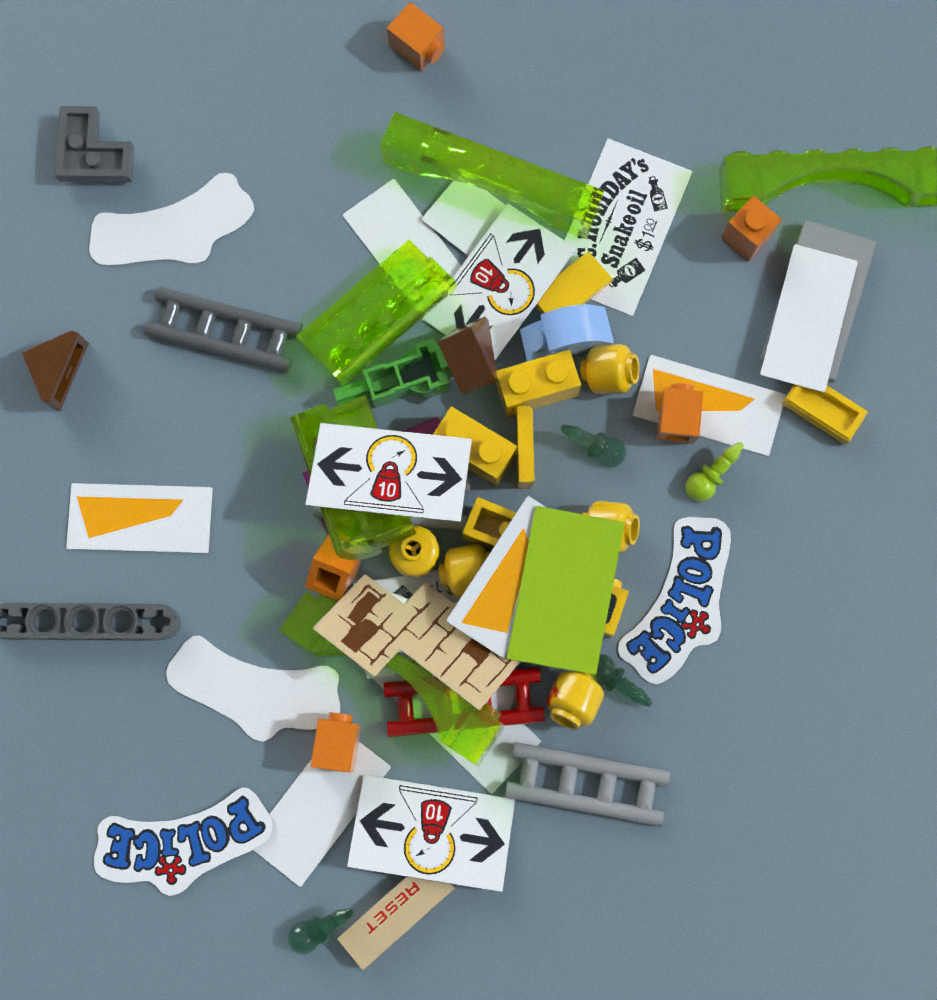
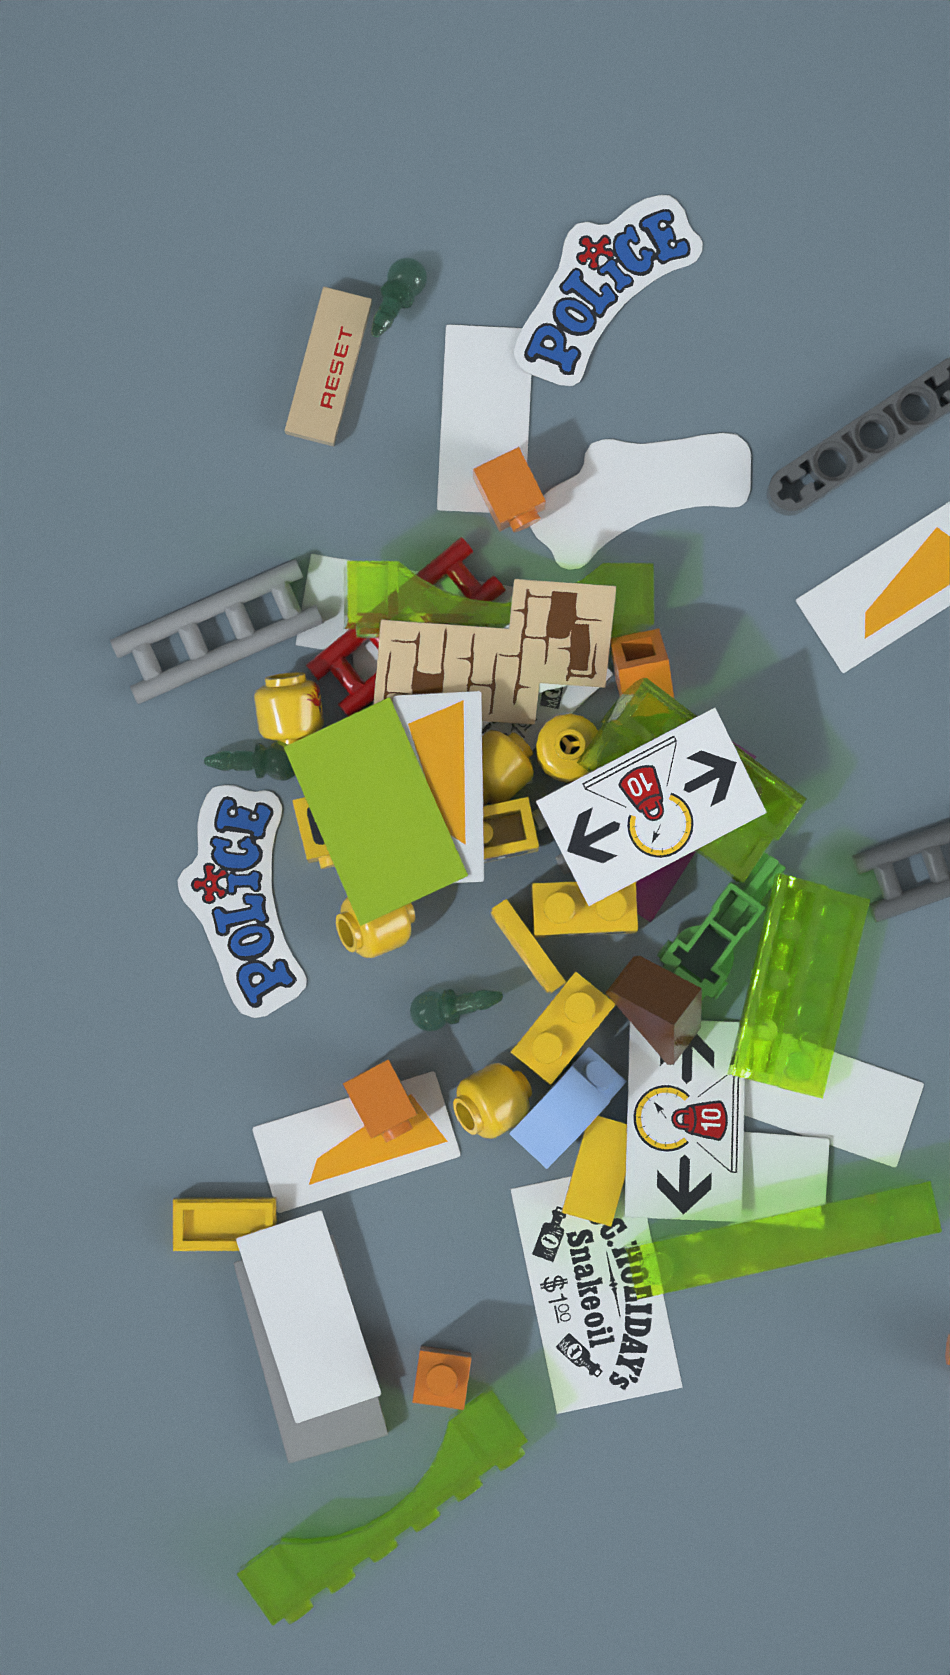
camera: 140 degrees right, 5 degrees up
(432, 833) = (346, 470): white sticker -> none
(702, 485) = (304, 1042): lime bar -> none

